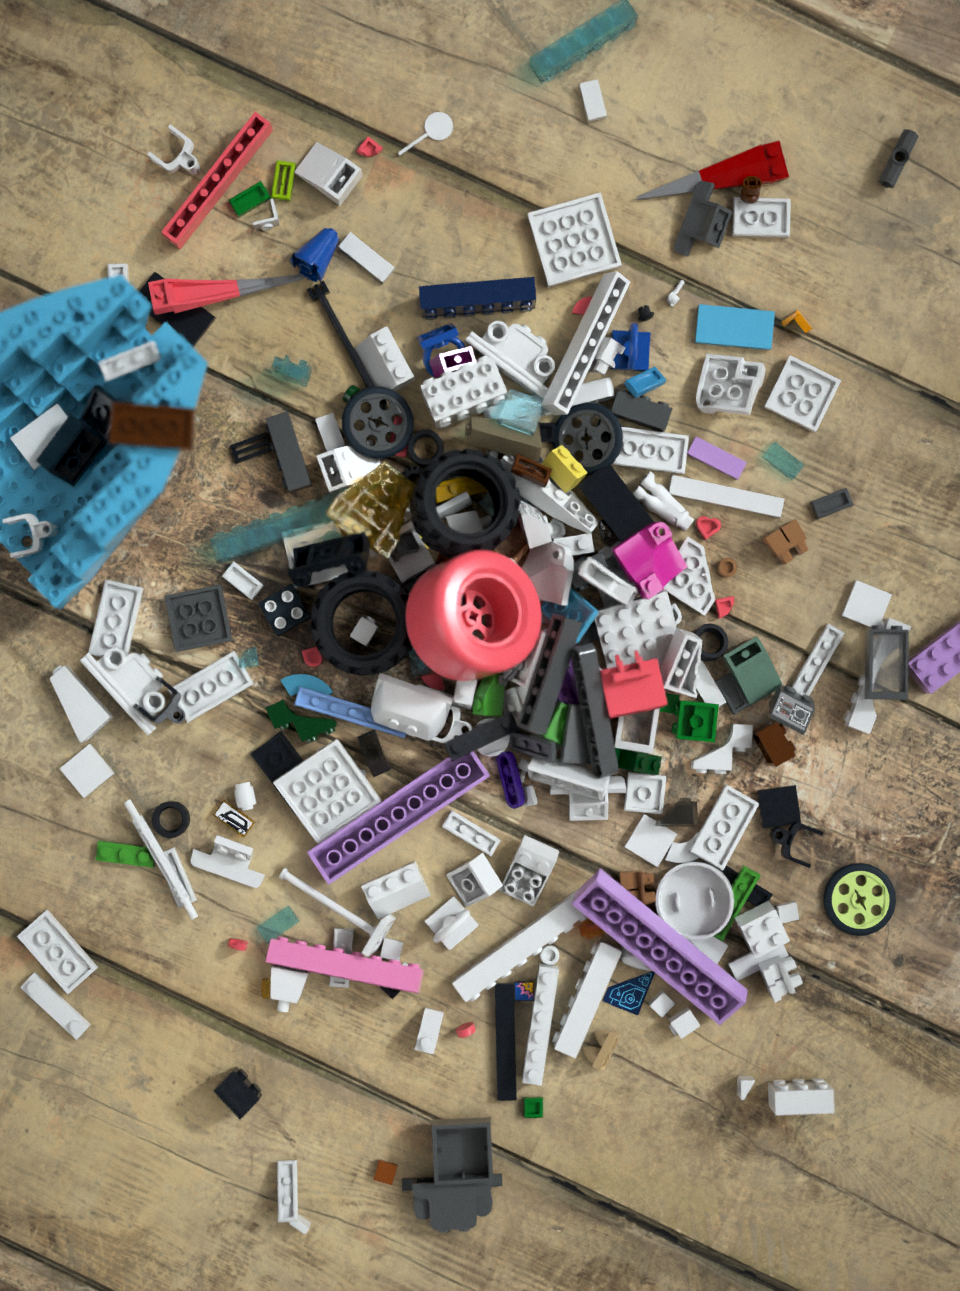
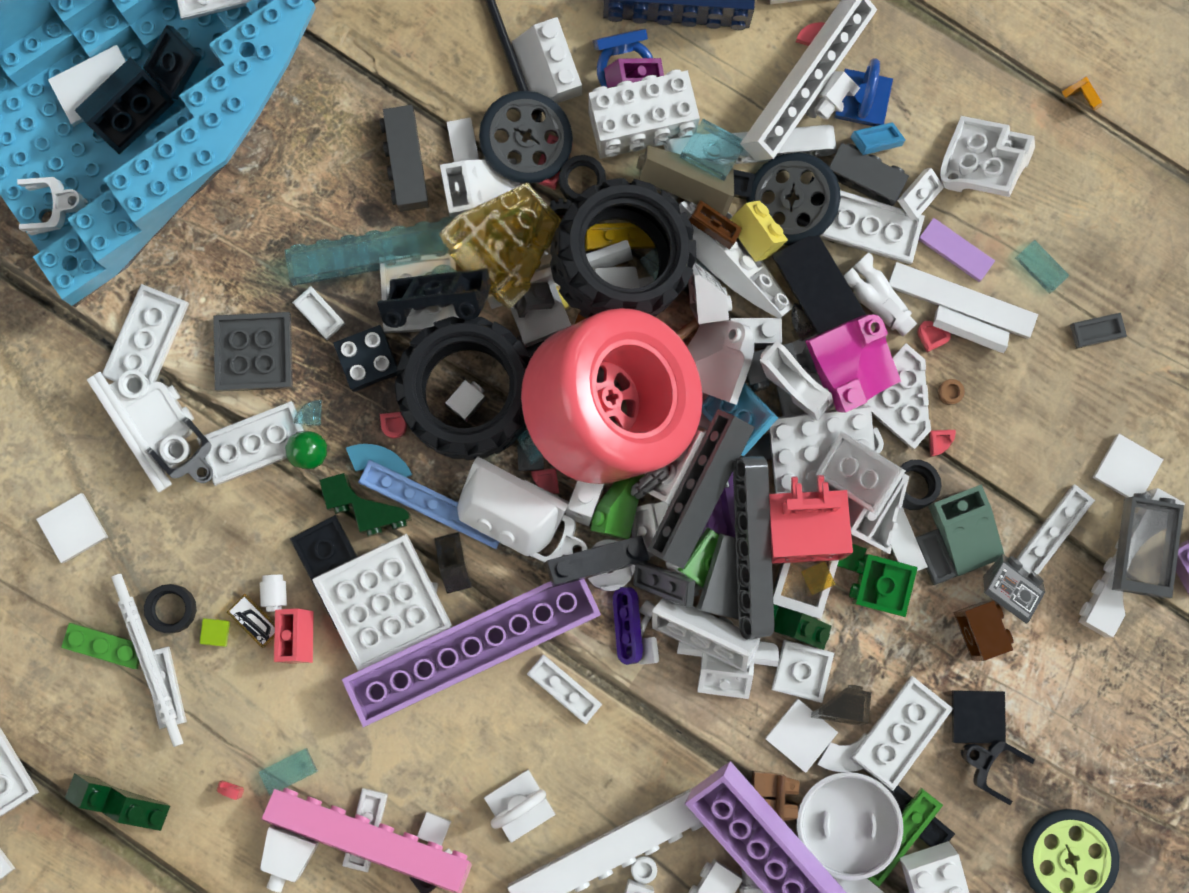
camera: 10 degrees right, 5 degrees down
(80, 704) = (79, 441): white slope -> none
(151, 426) = (227, 73): reddish brown tile -> none
(159, 967) = (117, 804): none -> dark green arch
(206, 831) = (214, 632): none -> lime tile
(230, 861) = (238, 676): white plate -> none
(251, 686) = (306, 450): none -> green hair
(253, 439) = (357, 146): black tile -> none
(266, 825) = (293, 636): none -> coral brick
(266, 988) = (256, 855): clear yellow tile -> none
(292, 372) = (427, 57): clear light blue hips -> none
(350, 392) = (496, 94): dark green tile -> none
(377, 933) = (416, 805): white tile -> none
(396, 890) = (452, 749): white slope -> none
(474, 880) = (559, 752): white slope -> none
(516, 355) = (720, 79): white brick -> none
(529, 870) = (634, 751): white slope -> none
(558, 529) = (739, 307): white tile -> none
(590, 930) = (705, 844): clear orange brick -> none
(645, 313) = (889, 54): black piece -> none
(646, 724) = (818, 578): none -> clear yellow tile
(665, 642) = (861, 472): none -> white tile
(672, 299) = (927, 40): white hand -> none
(683, 420) = (920, 193): none -> white plate
(721, 757) = (910, 640): white arch -> none
(734, 327) = (1001, 89): medium azure tile -> none
(735, 517) = (971, 329): none -> white tile
(786, 538) = (1032, 366): medium nougat hips -> none
(787, 911) = (973, 860): white slope -> none
(802, 393) = (1078, 184): white plate -> none

